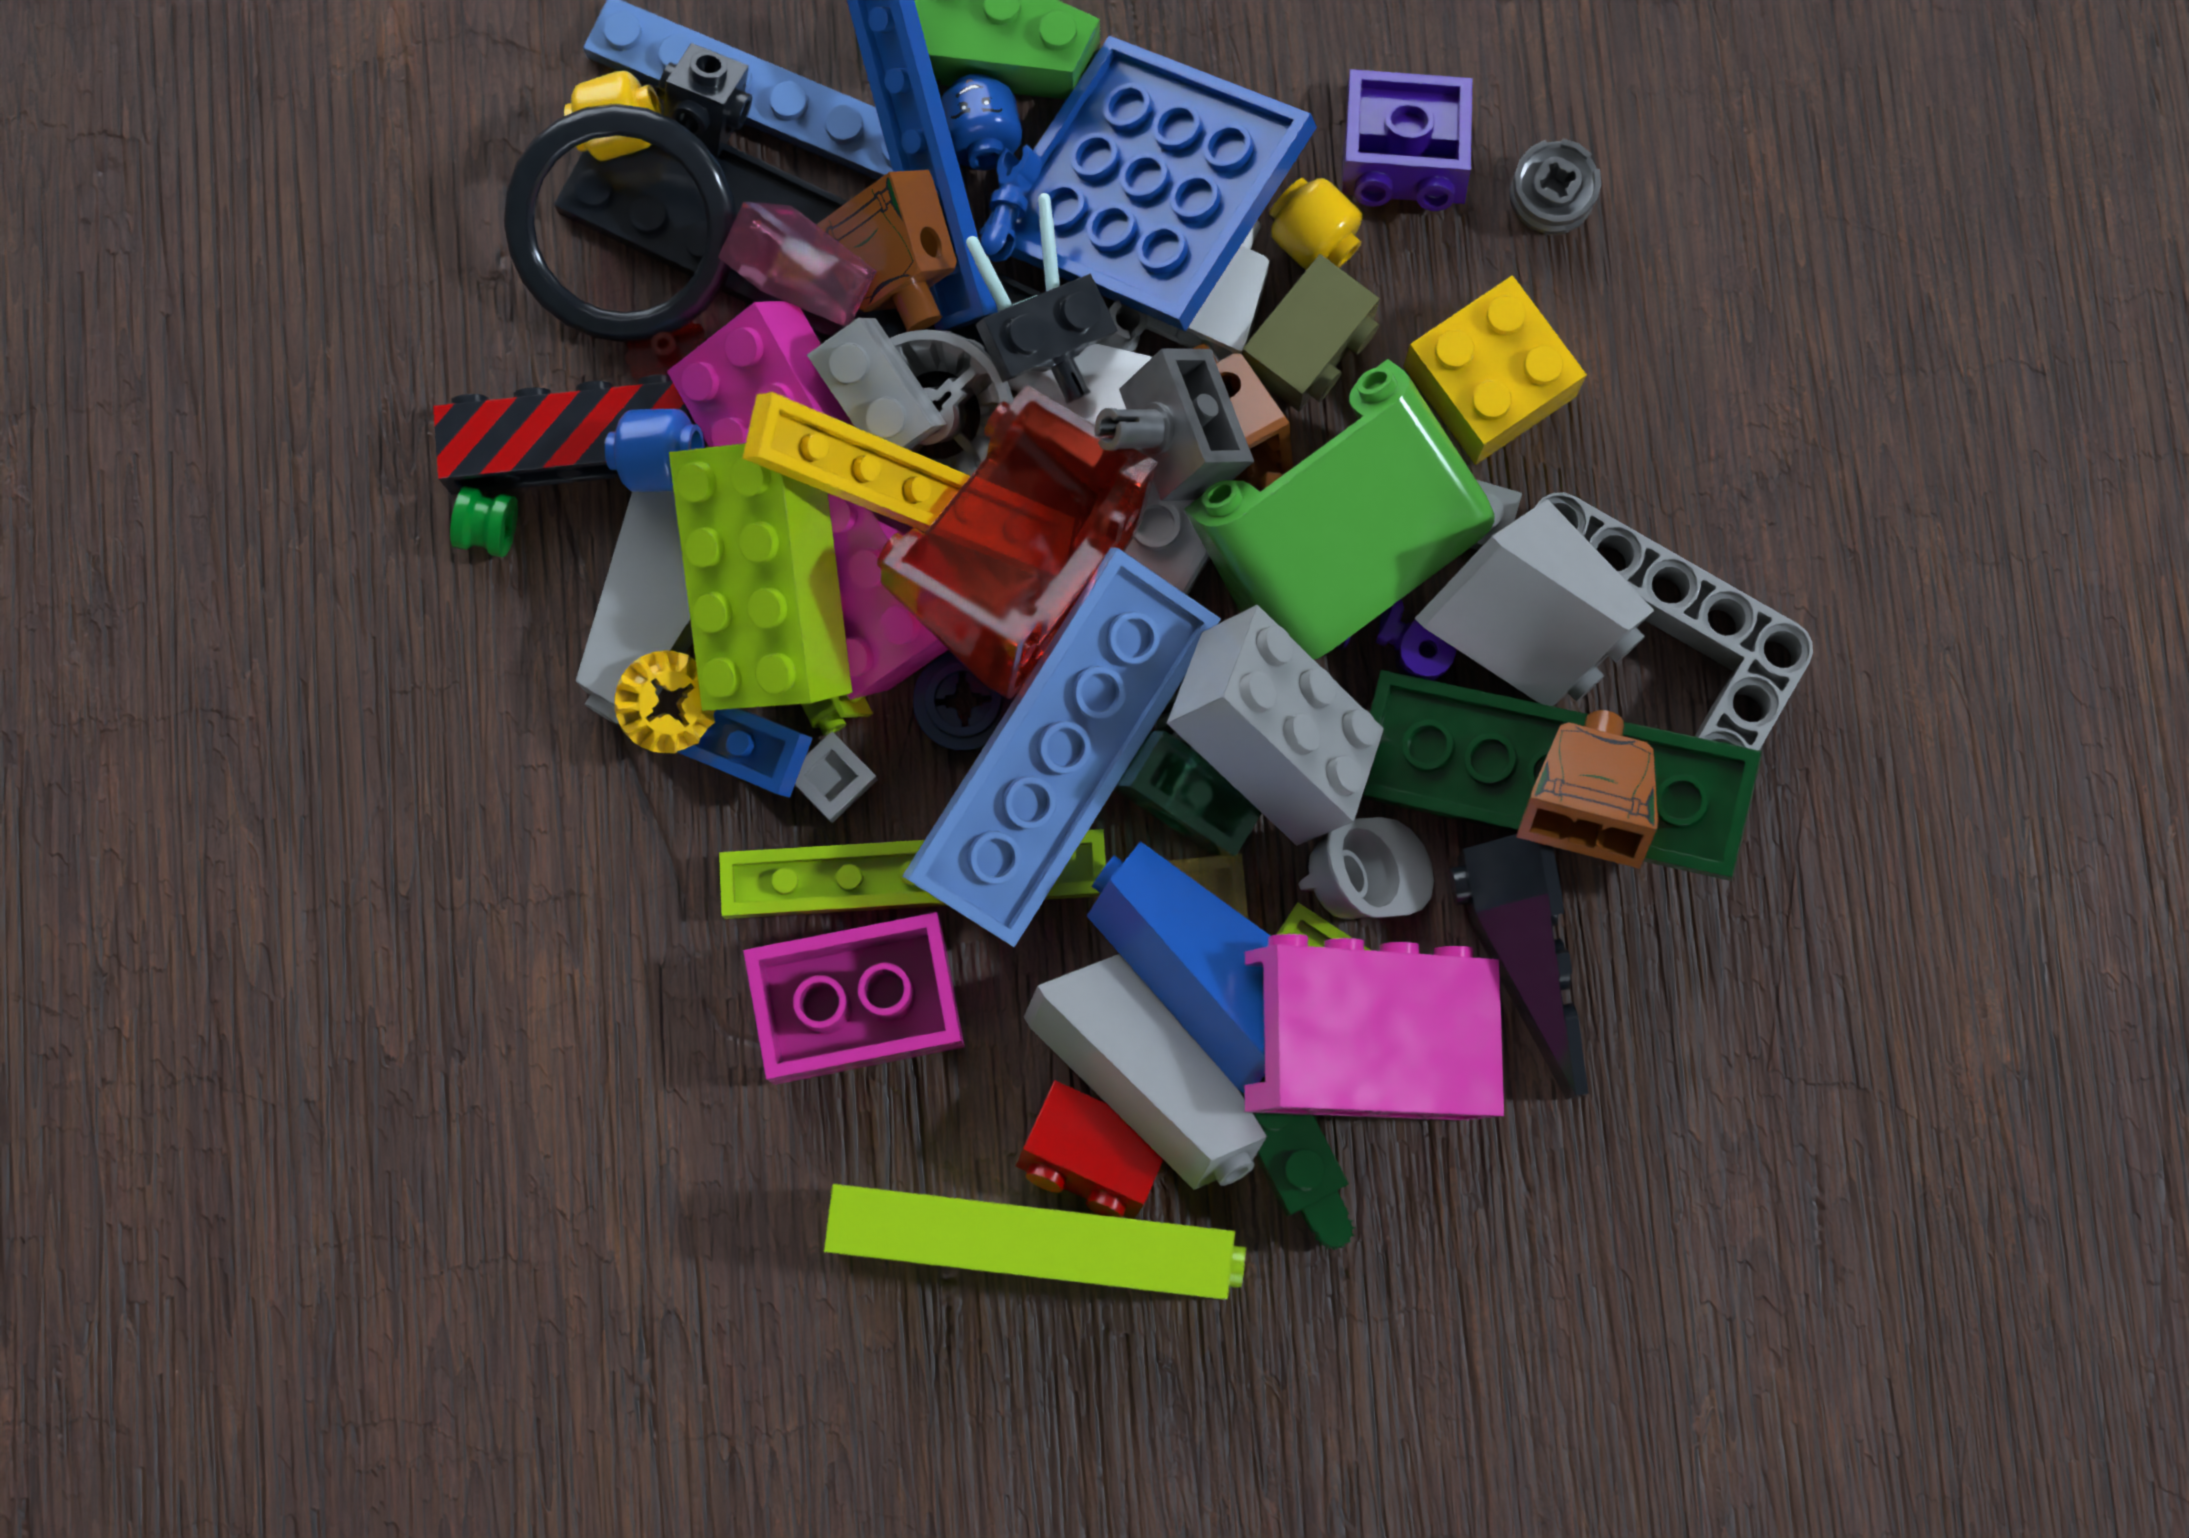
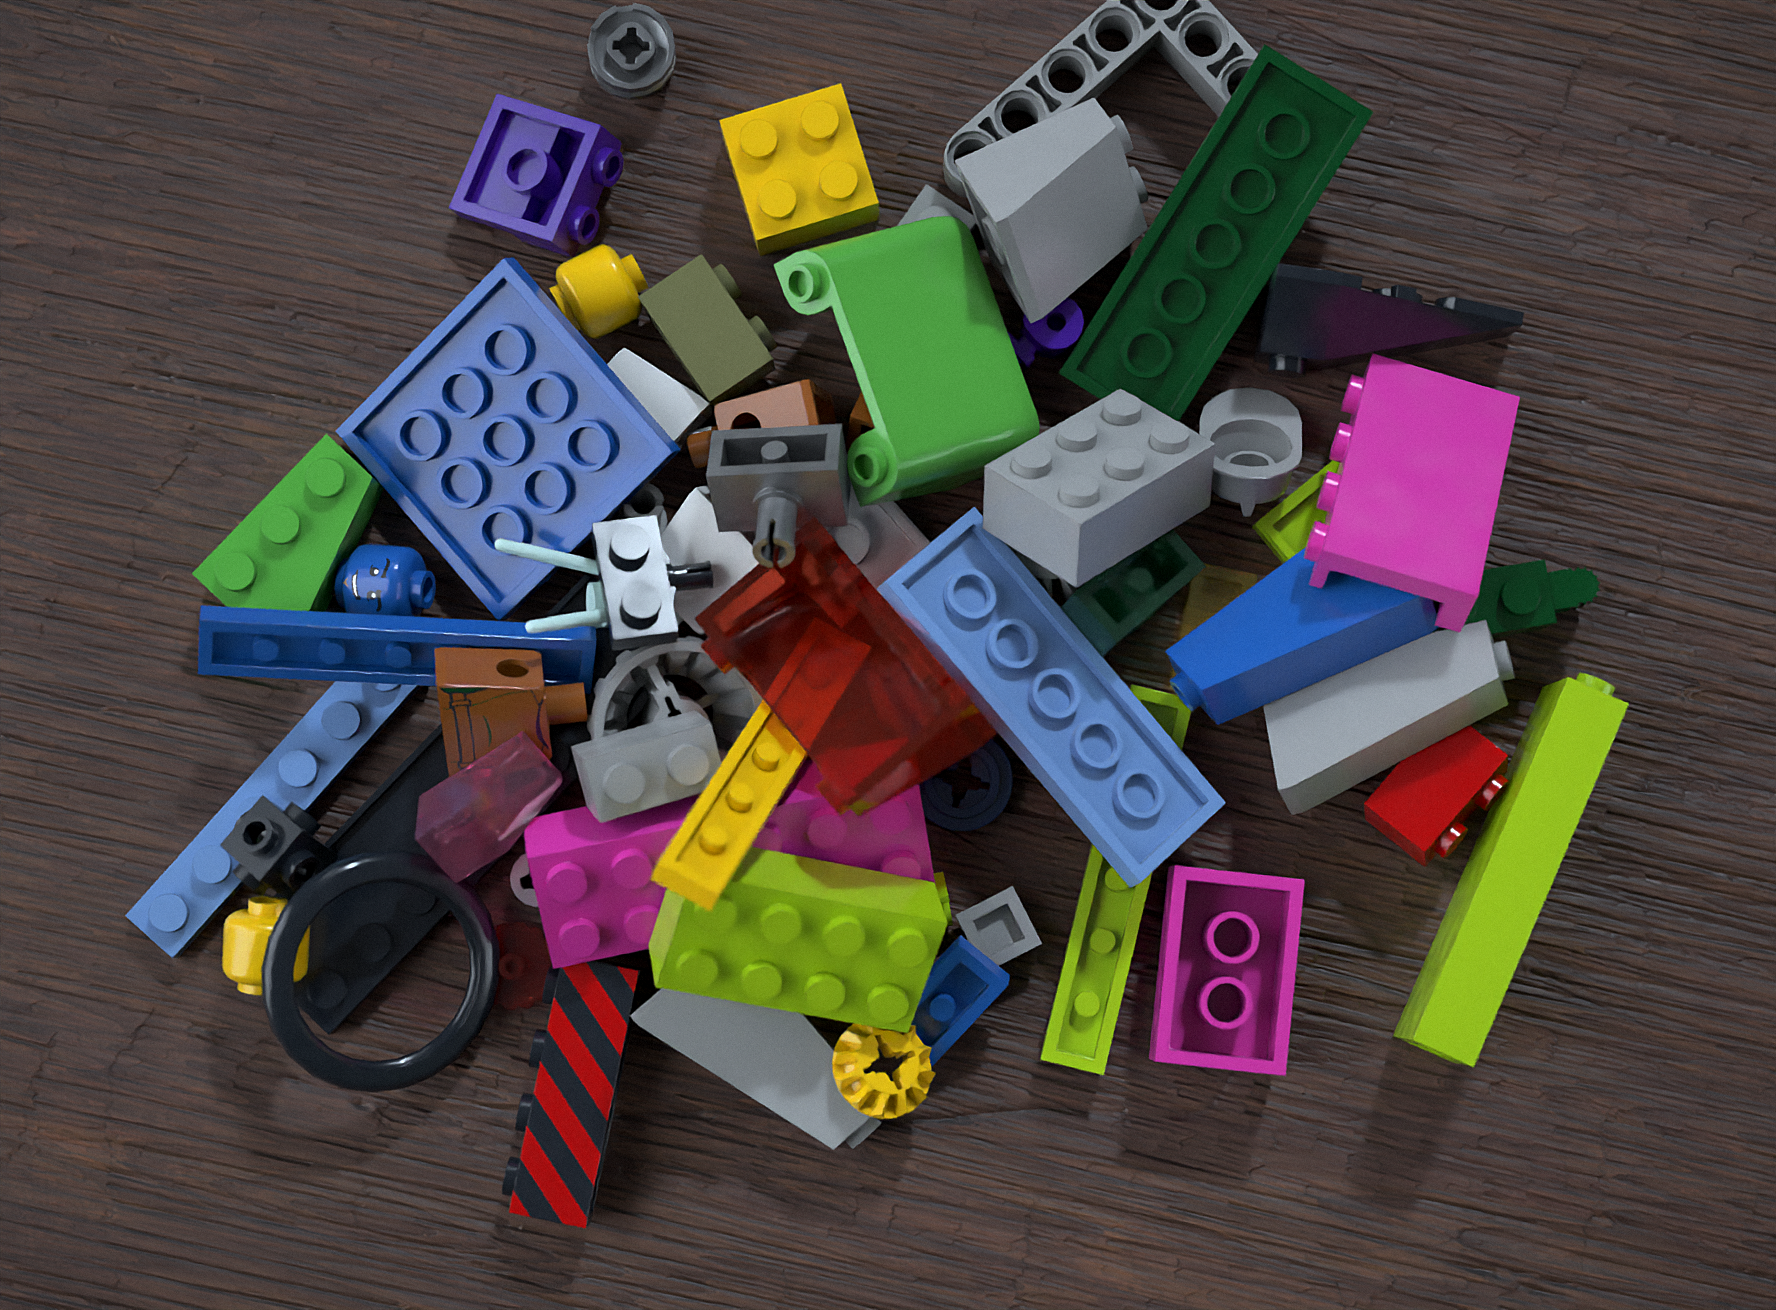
camera: 75 degrees left, 5 degrees up
(483, 521) = (636, 1196): green wheel -> none
(643, 444) = (630, 1006): blue head -> none
(1008, 202) = (484, 581): blue piece -> none
(1595, 793) = (1261, 209): dark orange torso -> none

